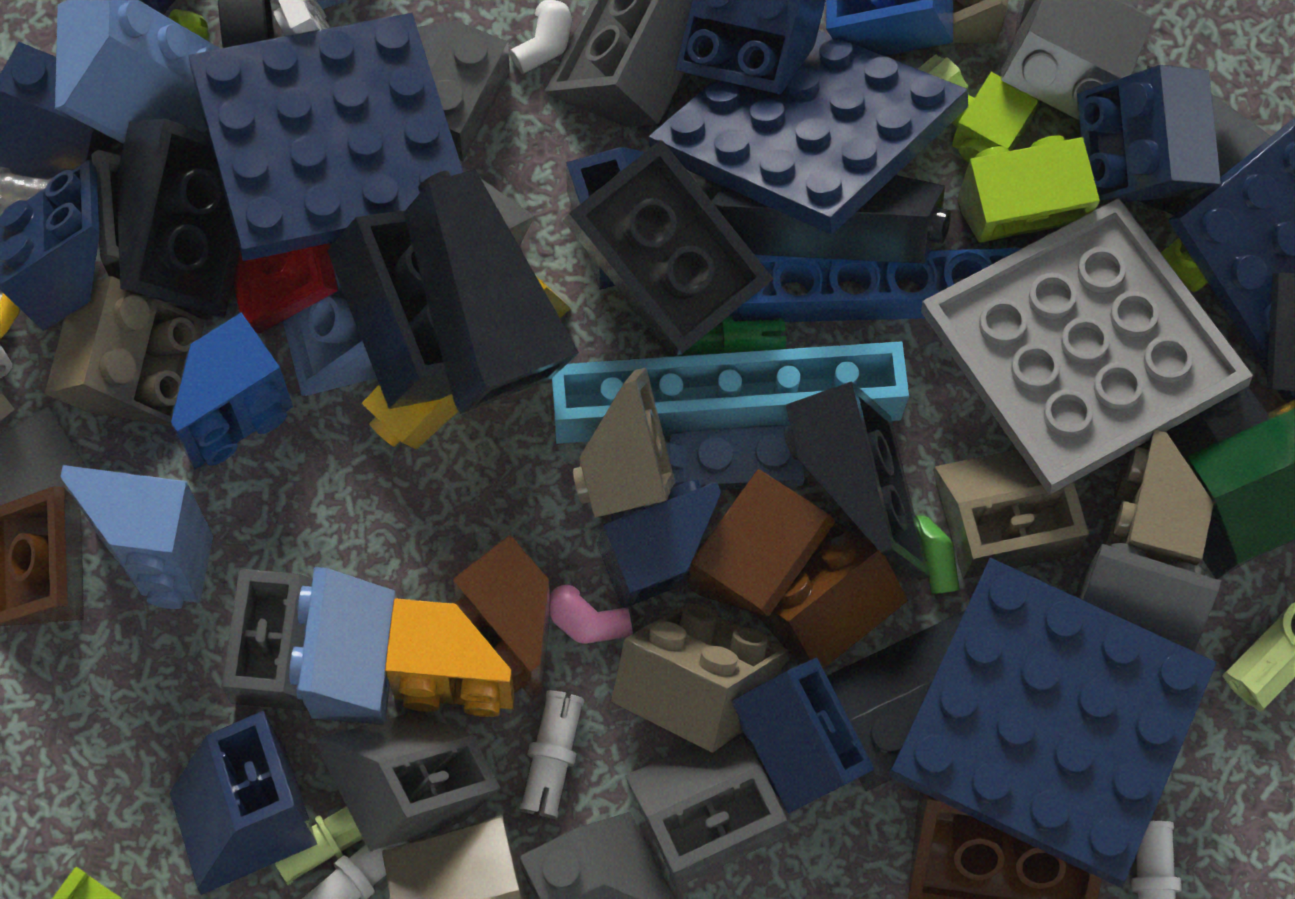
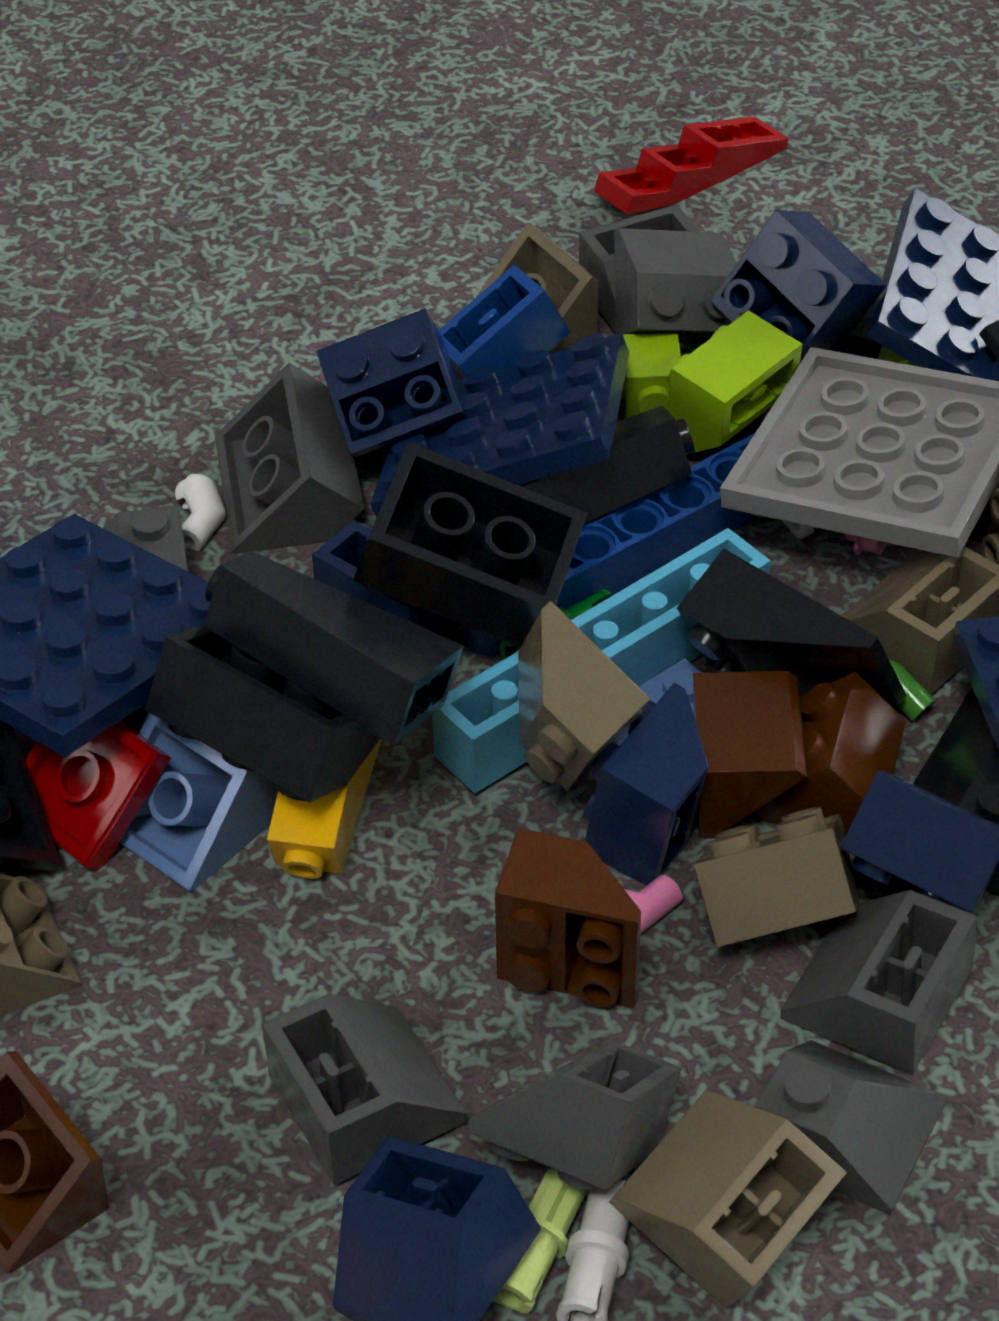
camera: 30 degrees left, 25 degrees down
(149, 530) = (129, 1043): medium blue slope -> none
(228, 393) = (127, 894): blue slope -> none
(344, 648) = (435, 1018): medium blue slope -> none
(444, 659) = (535, 991): light orange slope -> none
(552, 754) = (696, 1030): white pin -> none

